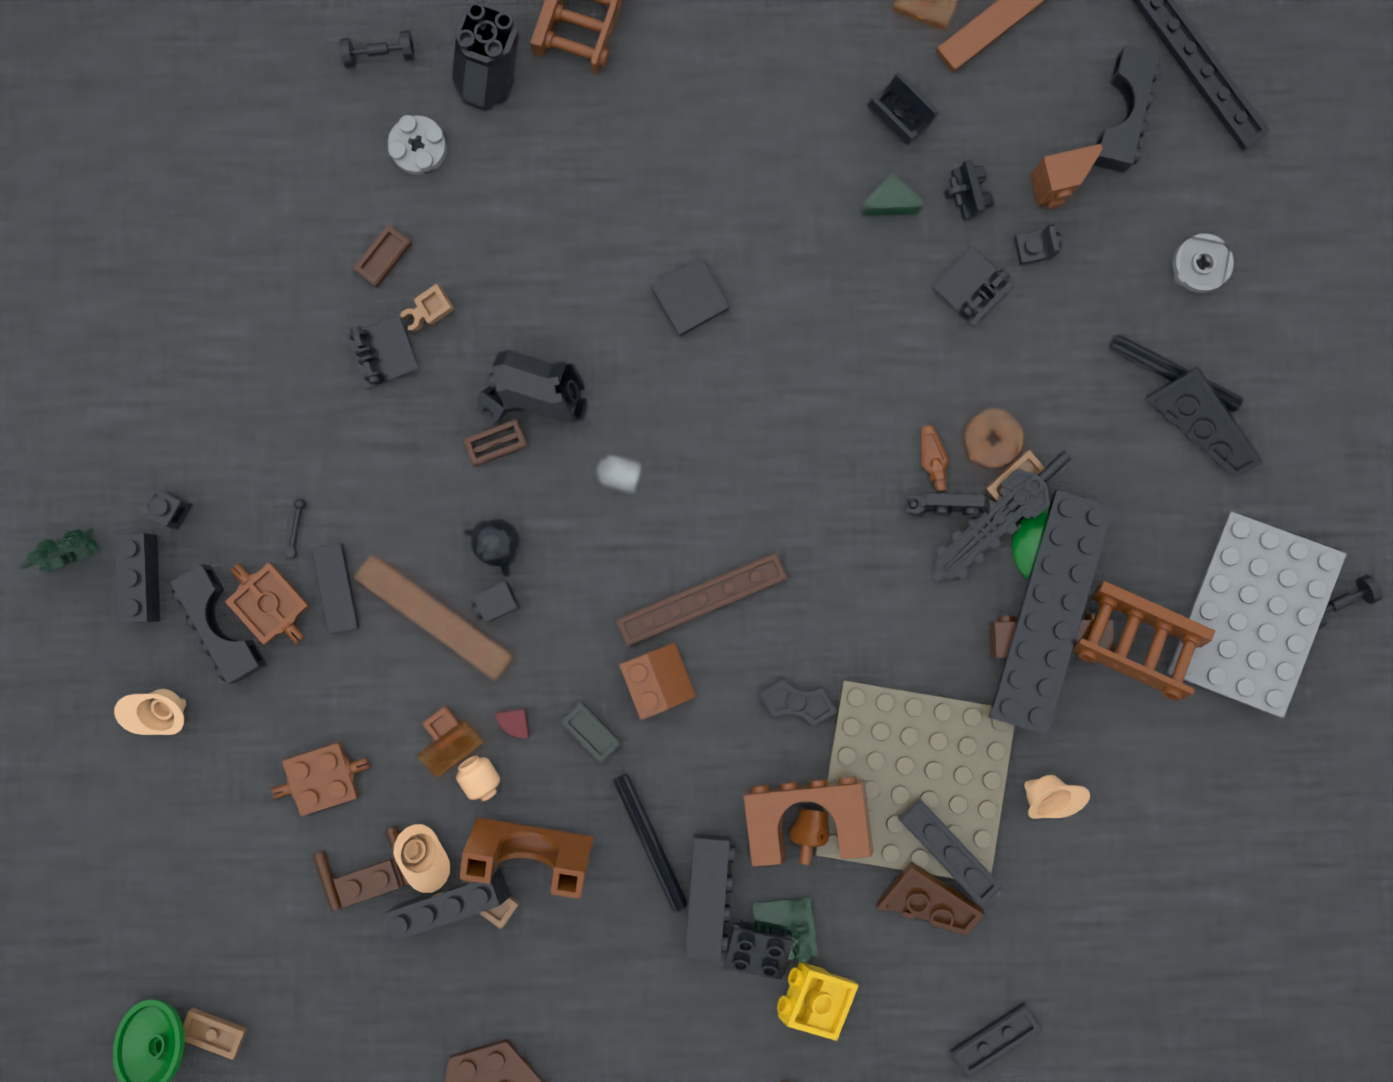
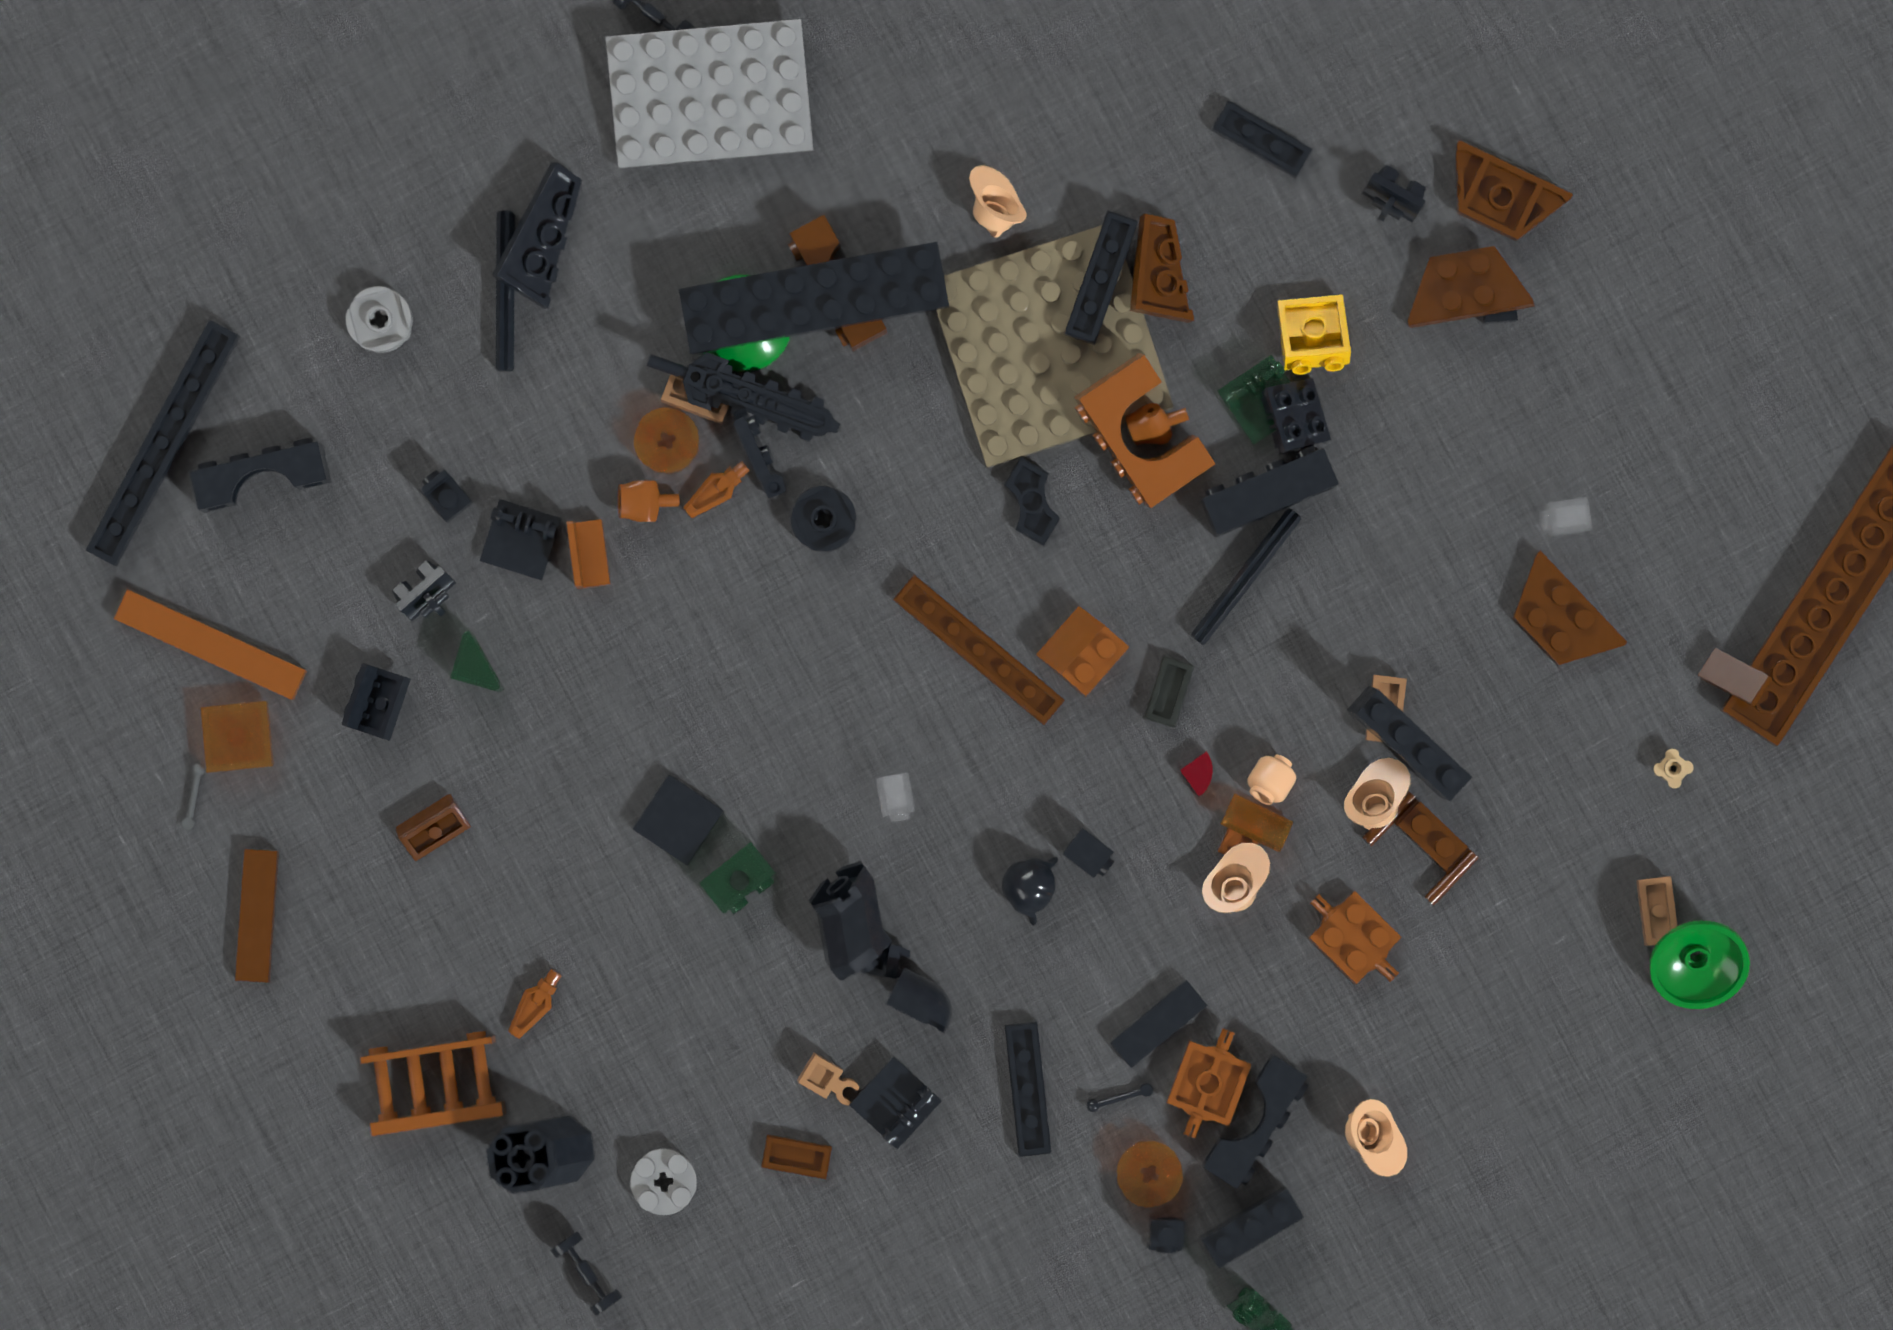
camera: 110 degrees left, 0 degrees up
(206, 519) = (1155, 1191): none -> clear orange plate
(339, 460) = (1028, 1089): none -> black tile
(413, 709) = (1236, 878): none -> light nougat piece
(433, 617) = (1136, 909): clear orange tile -> none
(447, 409) = (921, 1000): none -> black brick
(498, 841) = (1299, 658): dark orange arch -> none
(501, 452) = (908, 921): reddish brown tile -> none
(605, 115) = (534, 1004): none -> dark orange piece
(618, 301) = (719, 884): none -> clear green brick
(782, 106) = (432, 827): none -> reddish brown slope
(879, 518) = (830, 501): none -> black plate
(935, 331) = (588, 554): none -> dark orange panel
(955, 395) = (641, 500): none -> dark orange piece
(1061, 175) = (366, 504): dark orange slope -> none
(1164, 622) = (767, 180): dark orange fence -> none

